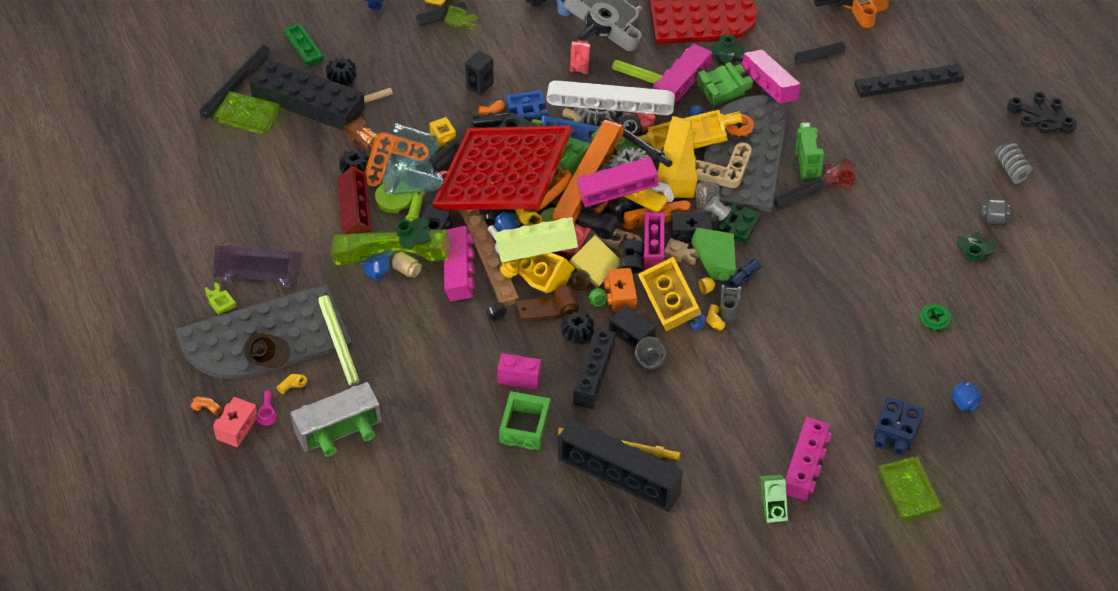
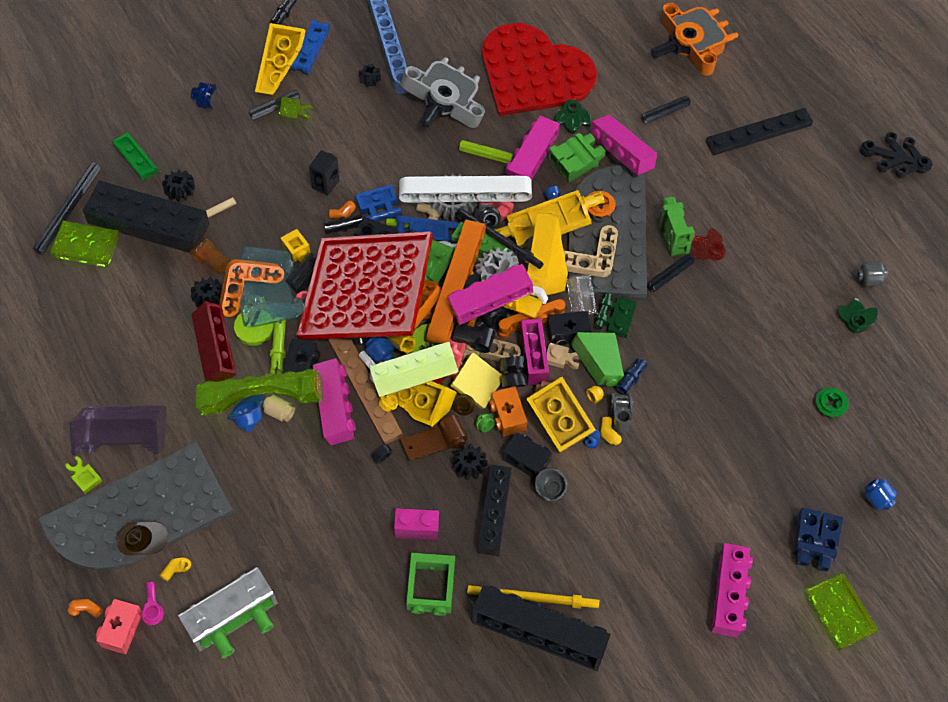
camera: 10 degrees left, 10 degrees up
(338, 340) = (219, 512): yellowish green axle -> none
(413, 232) = (285, 378): dark green plate -> none
(580, 57) = (425, 142): coral hips -> none
(718, 208) = (595, 305): light grey bush -> none
(774, 498) = (705, 642): bright green slope -> none
(1013, 162) = (879, 215): light grey piece -> none

